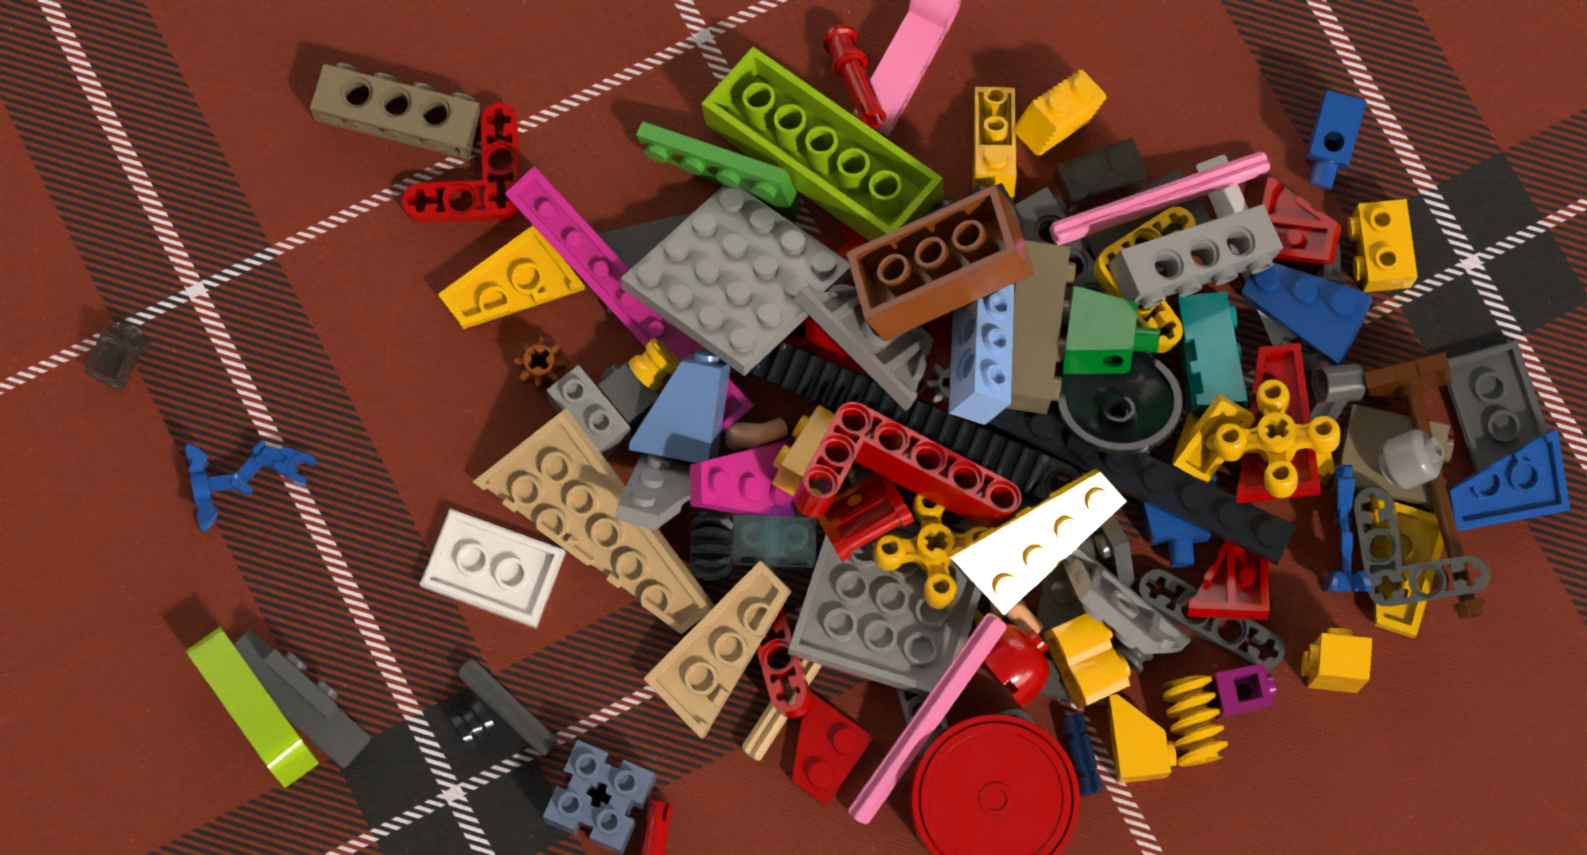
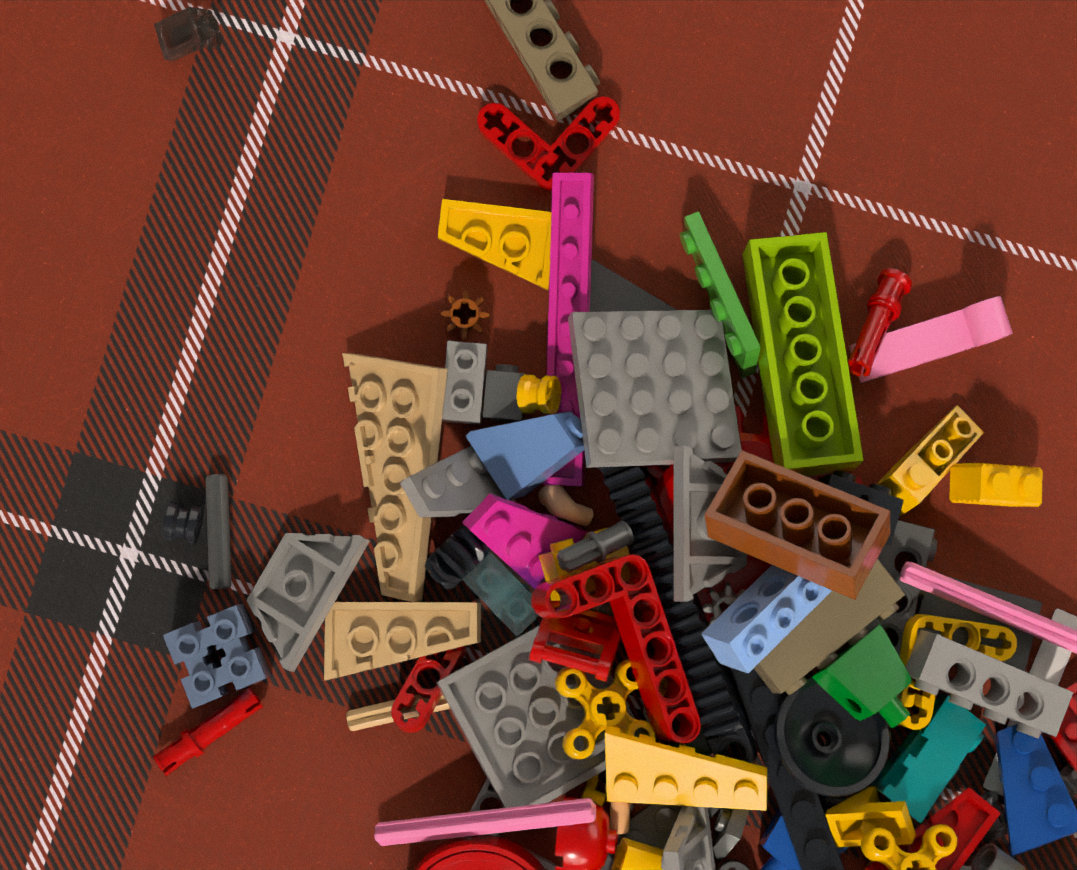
camera: 45 degrees right, 10 degrees up
(252, 707) = (42, 369): lime beam -> none
(282, 461) = (158, 181): blue piece -> none
(303, 702) = (85, 389): dark grey bracket -> none
(492, 568) = (299, 426): white tile -> none
(615, 684) = (301, 589): none -> light grey wing
(808, 428) = (595, 547): none -> dark grey axle
(827, 750) = (402, 769): red wing -> none
(1100, 175) = (981, 554): clear smoke brick -> none

